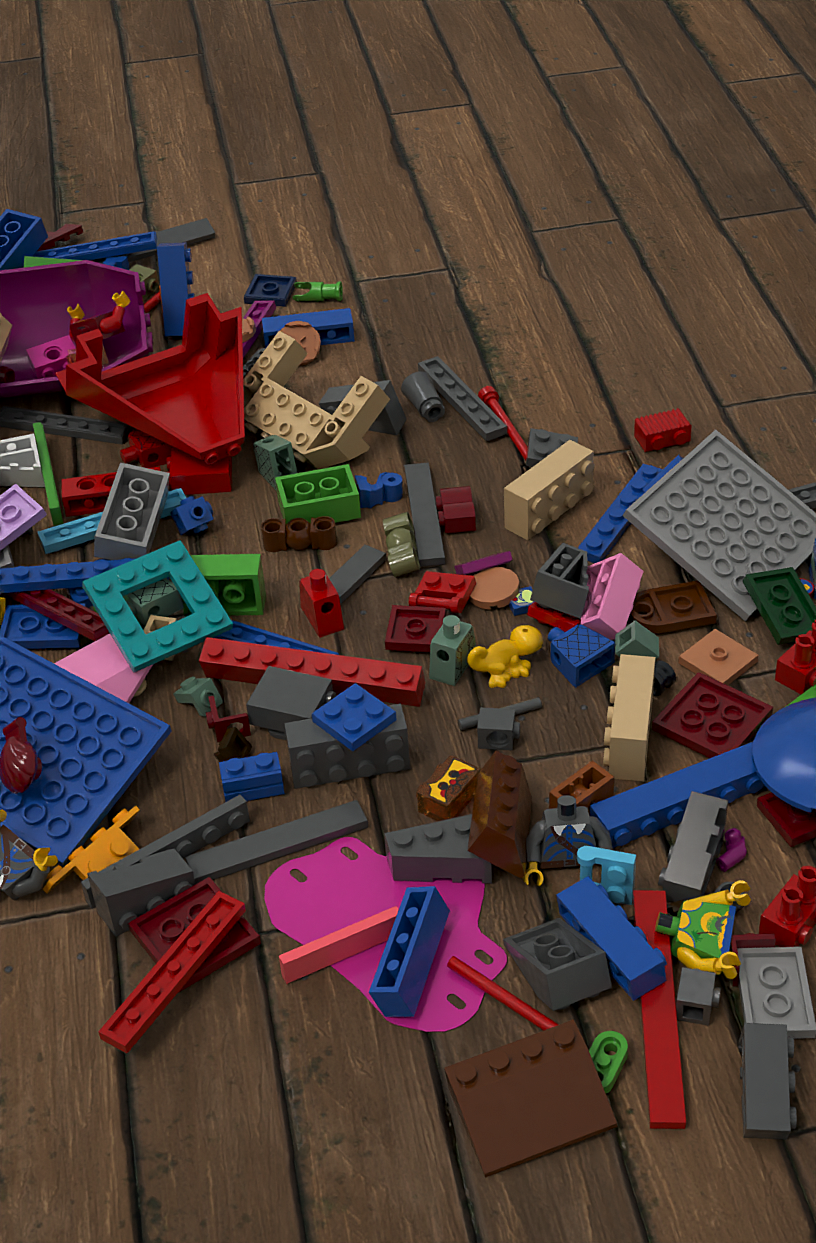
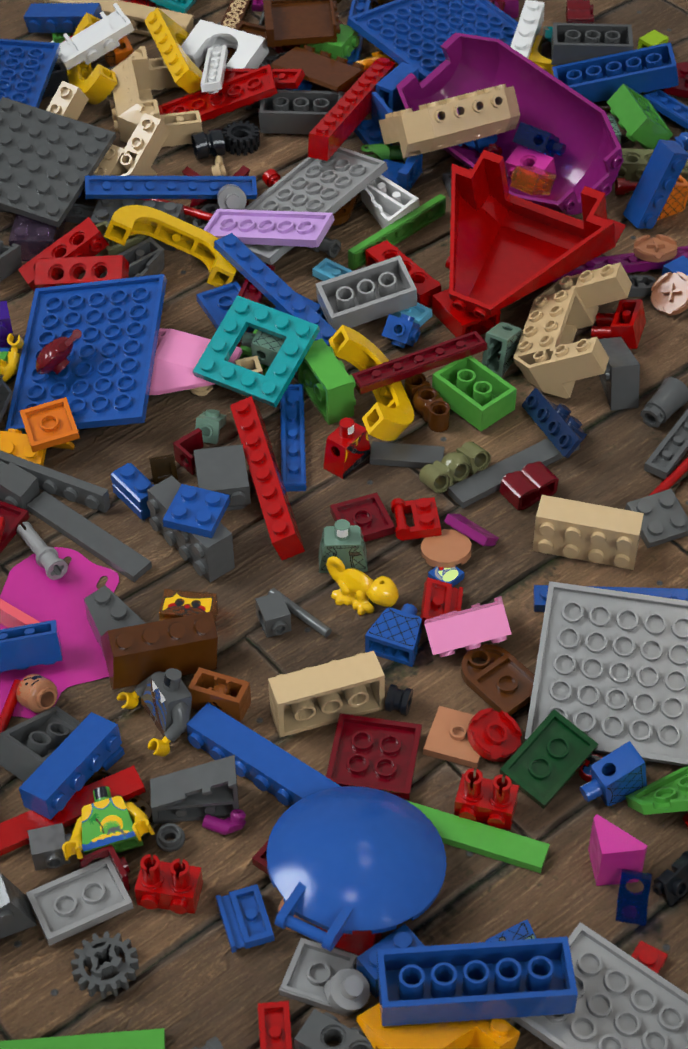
camera: 60 degrees right, 5 degrees up
(30, 335) = (538, 140): none -> clear blue torso
(108, 323) = (567, 164): torso -> none
(109, 808) = (49, 424): none -> orange plate
(263, 507) = (419, 362): none -> dark red tile
(273, 552) = (393, 408): none -> yellow arch
(288, 881) = (45, 555): none -> light grey pin
(312, 380) = (625, 323): none -> red brick
(387, 489) = (525, 428): blue leg -> none
(407, 464) = (555, 422): none -> dark blue bracket
(484, 944) = (36, 693): none -> nougat head
(563, 581) = (464, 582): dark grey wedge -> none
(616, 872) = (134, 739): medium azure plate -> none
(636, 641) = (425, 669): sand green brick -> none
(733, 632) = (494, 735): none -> red tile

